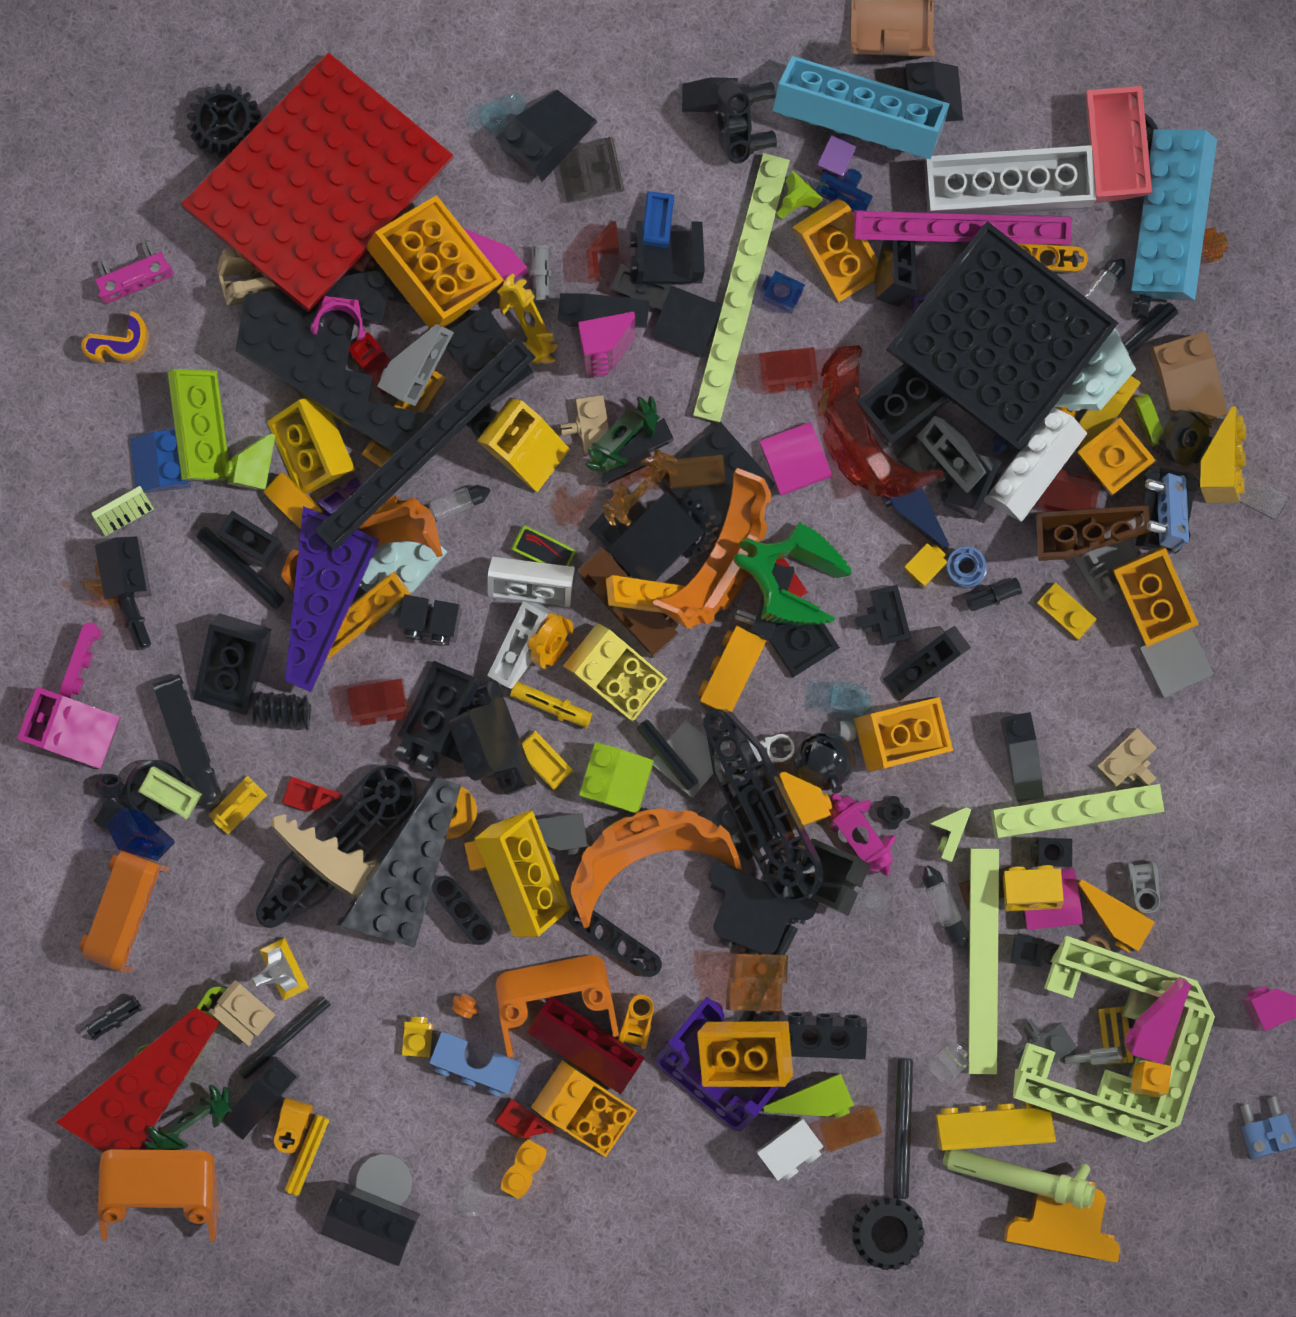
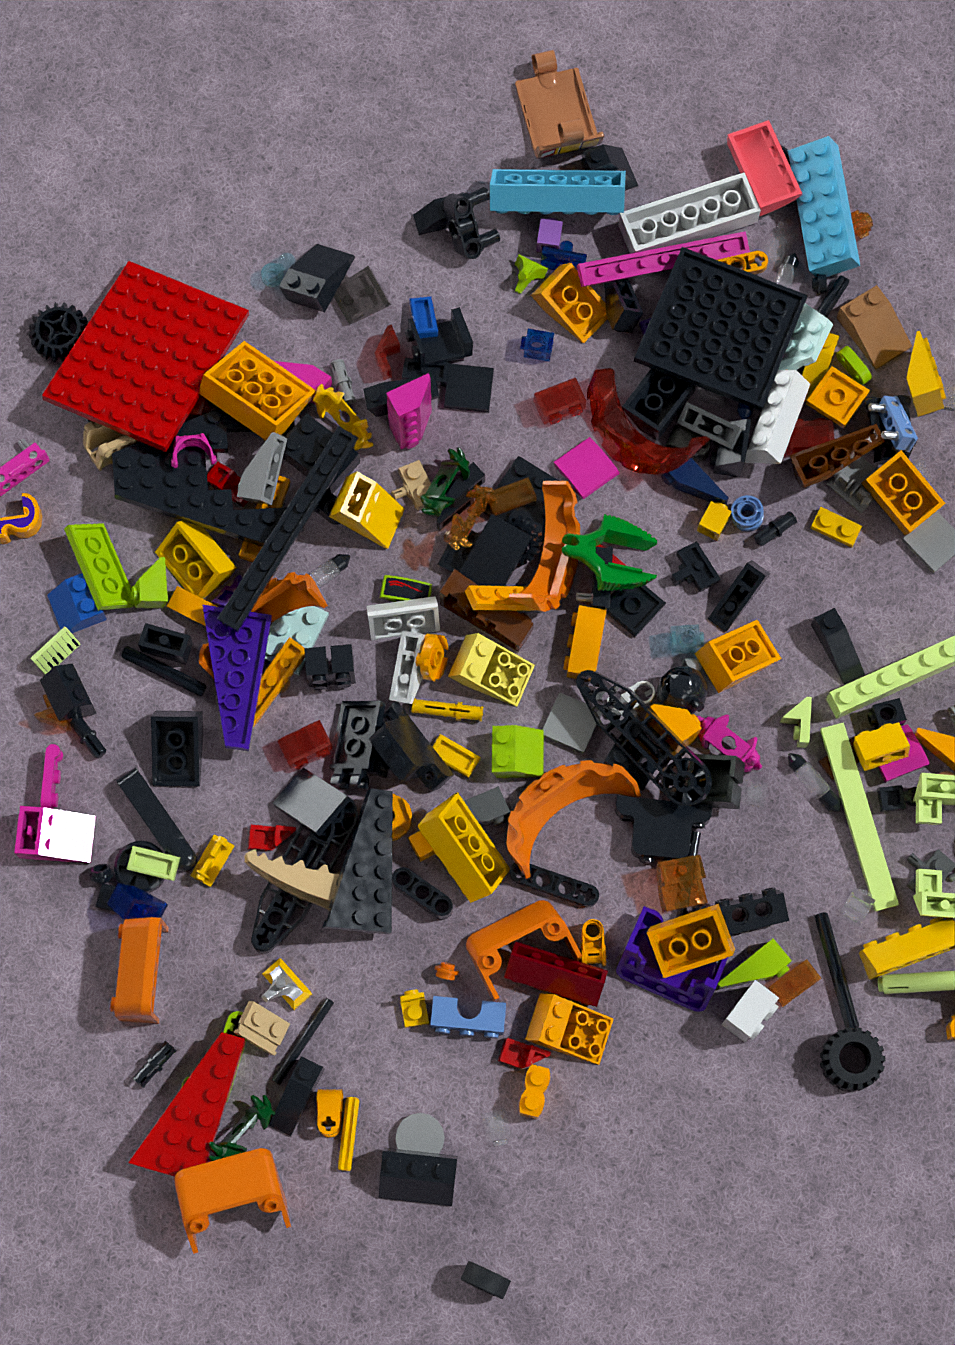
camera: 15 degrees left, 10 degrees down
(281, 710) = (228, 772): black piece -> none
(366, 771) = (311, 801): none -> tile
(667, 754) = (553, 722): black axle -> none
(741, 288) = (504, 353): yellowish green plate -> none
(893, 820) = (755, 718): black plate -> none
(1129, 760) = (923, 627): tan hinge -> none
(1174, 437) = (878, 371): black plate -> none

